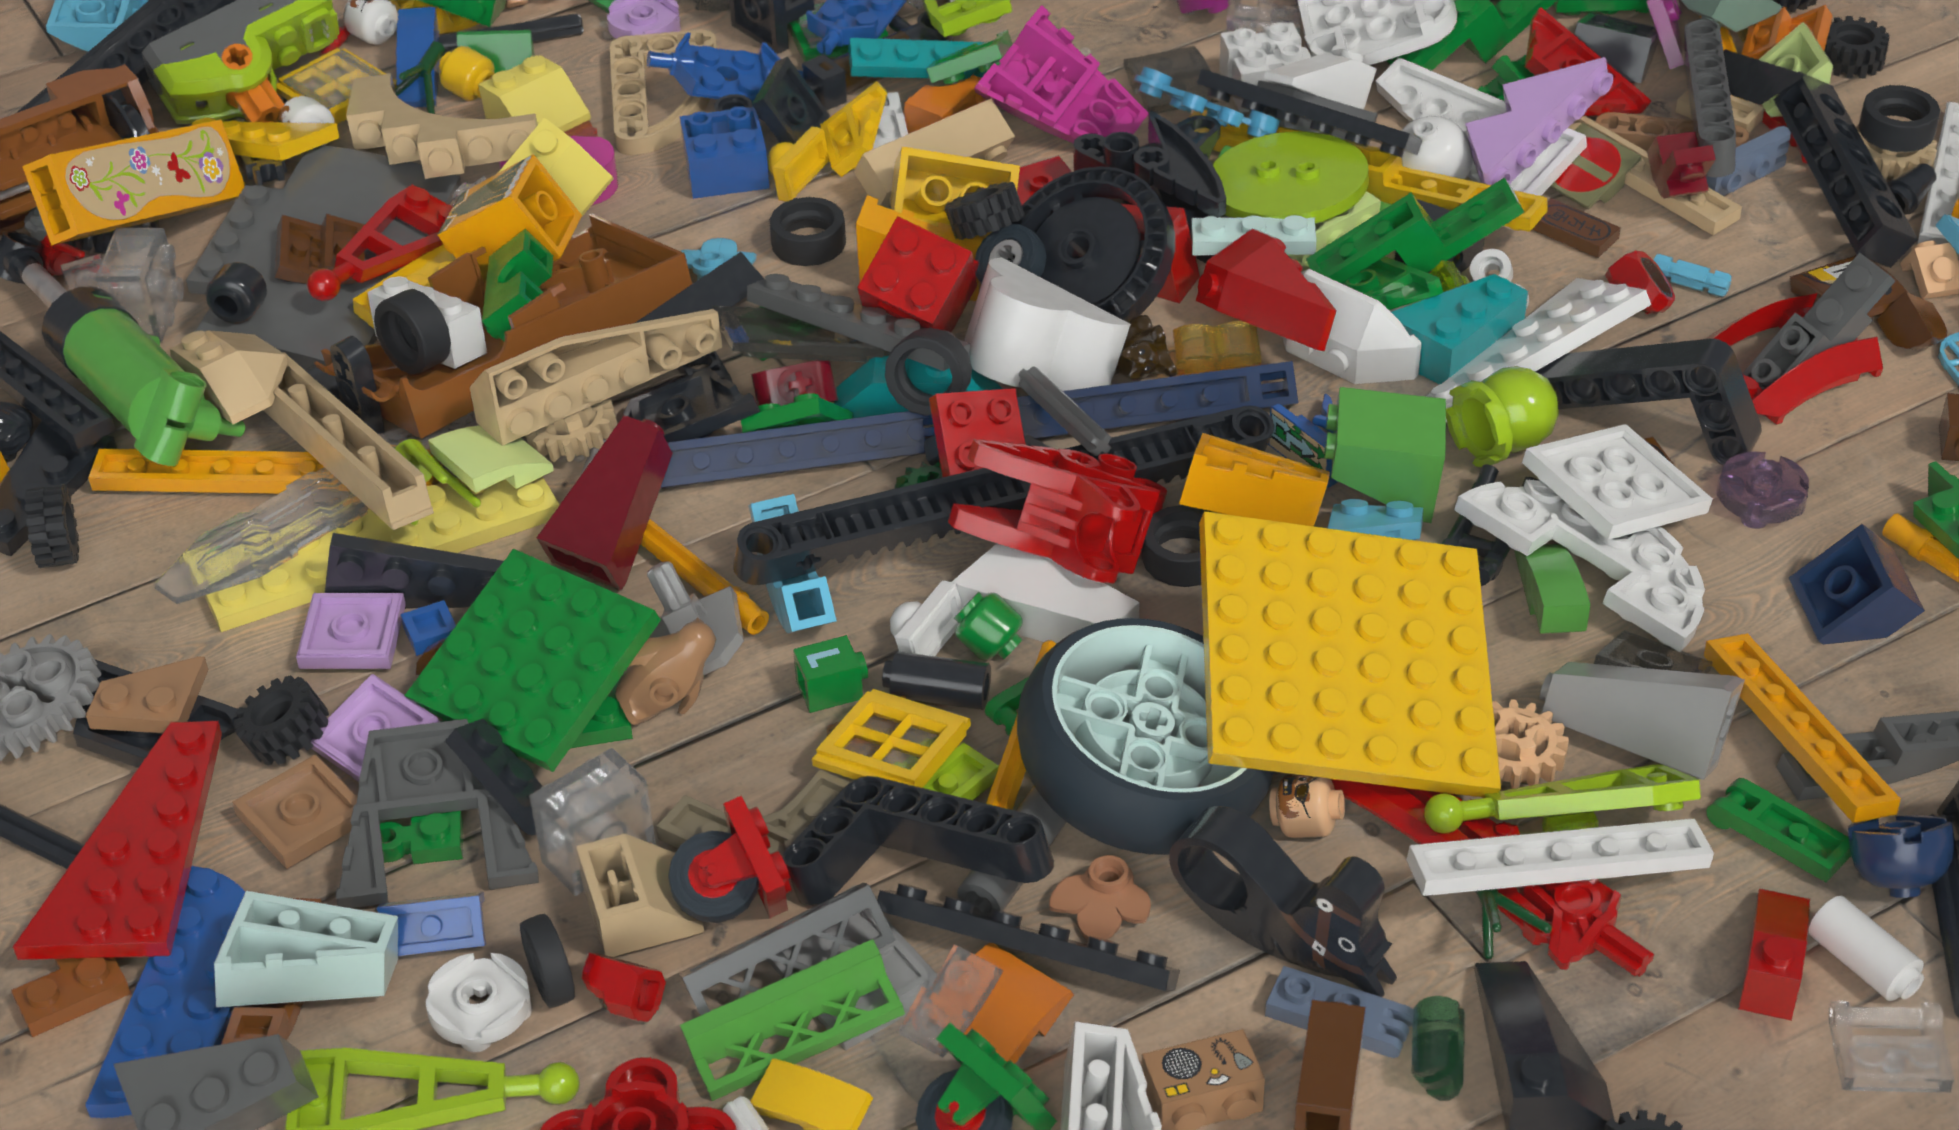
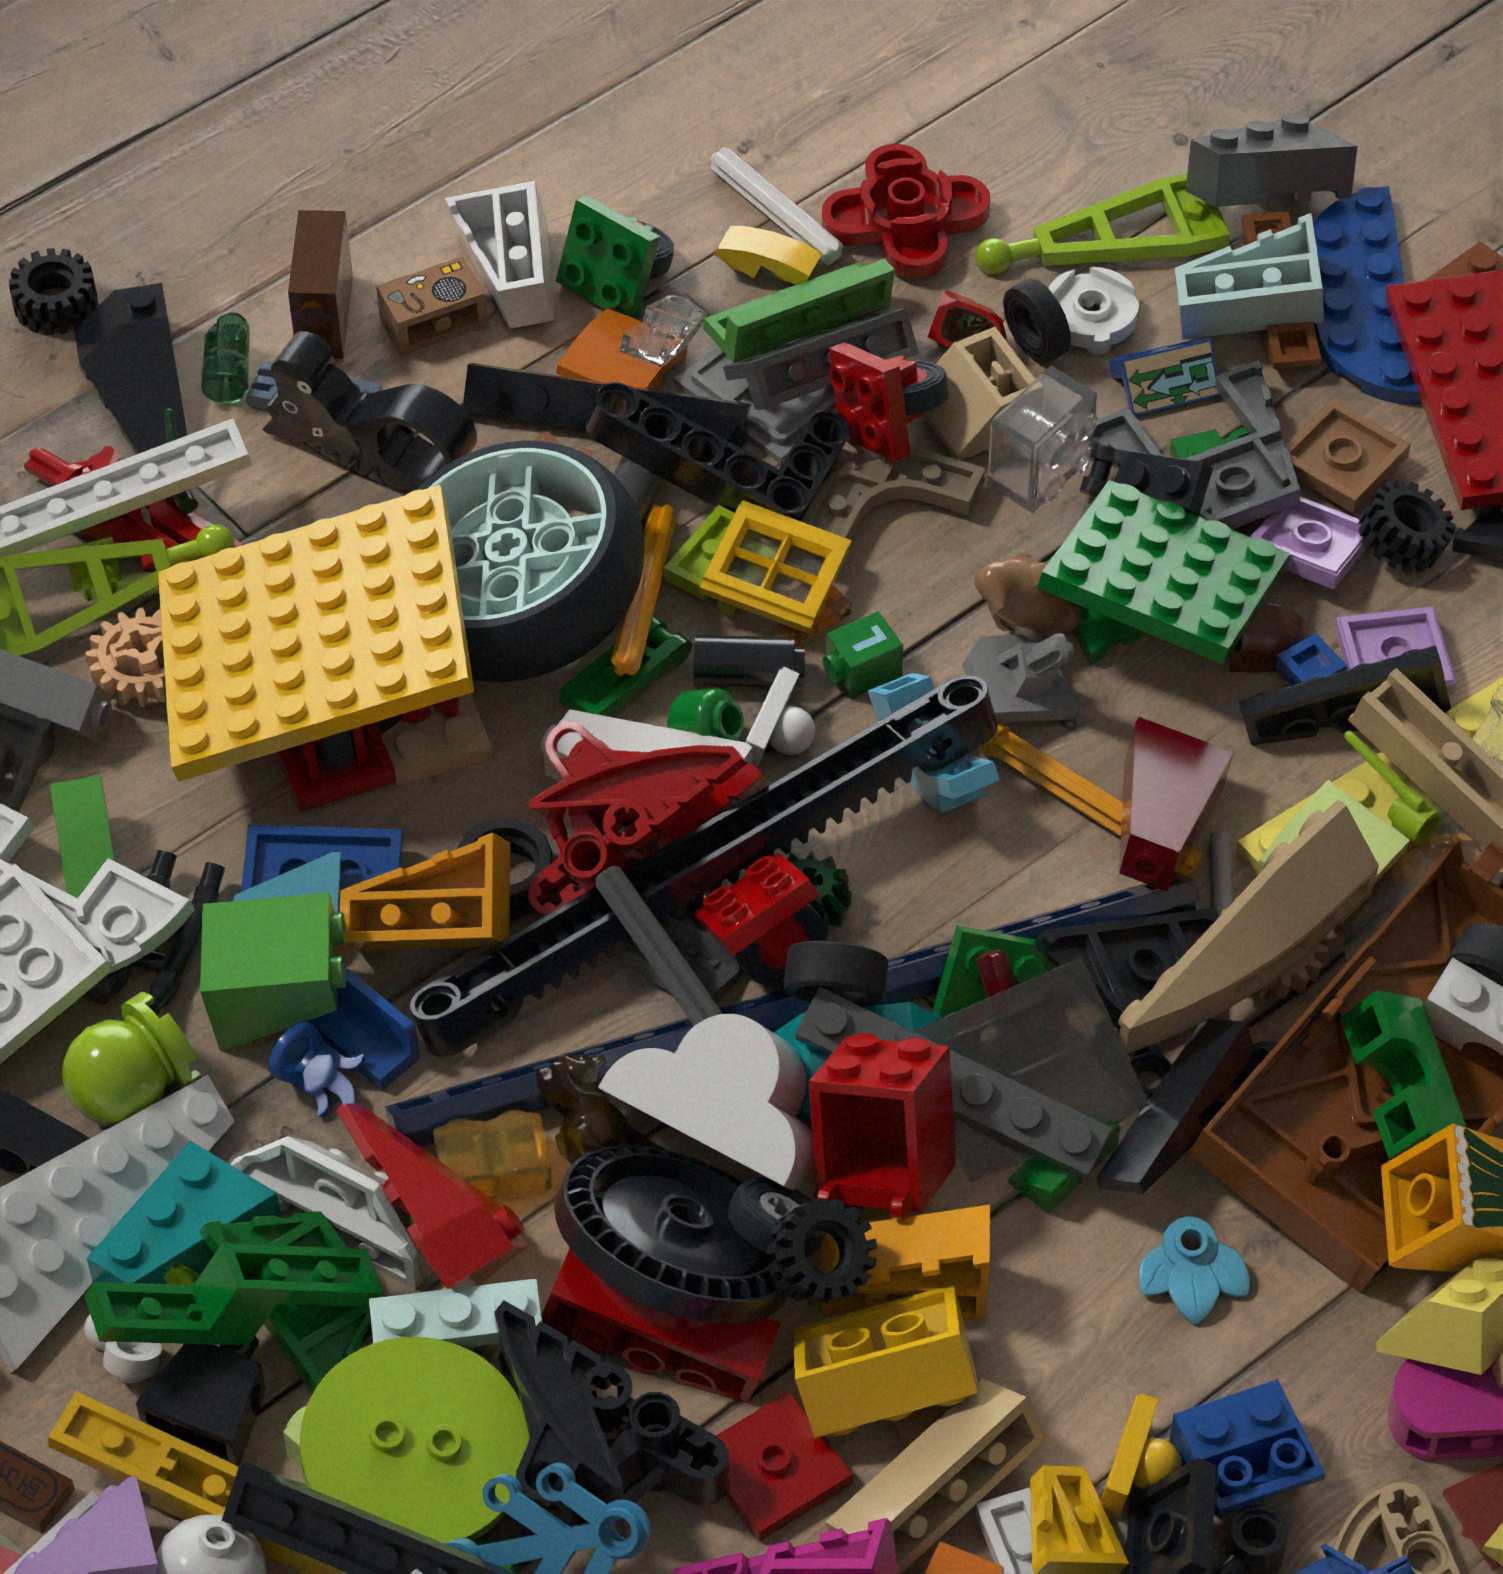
camera: 170 degrees right, 10 degrees up
(807, 213) = (1085, 1292): black tyre -> none

